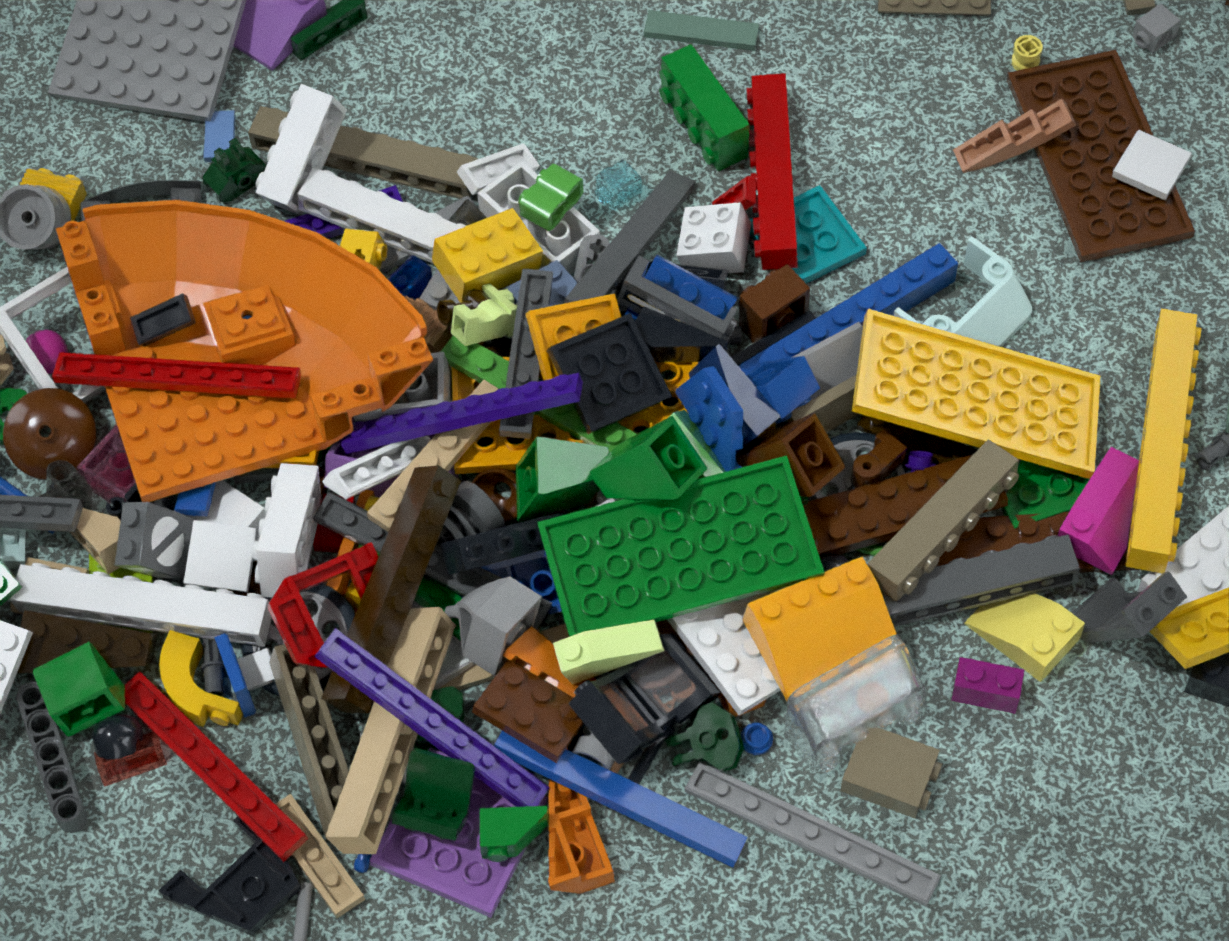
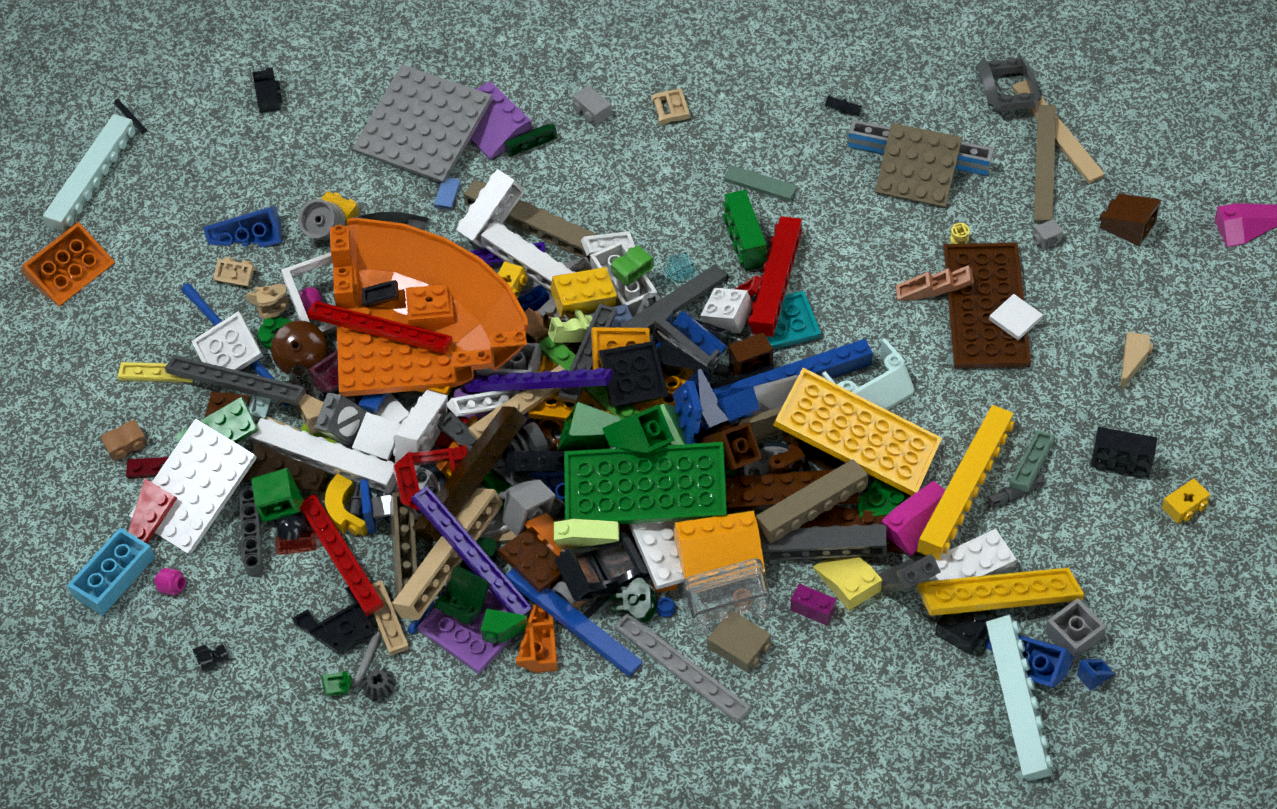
camera: 15 degrees right, 5 degrees down
(233, 171) = (447, 215): dark green hinge -> none
(919, 460) = (813, 465): dark purple plate -> none

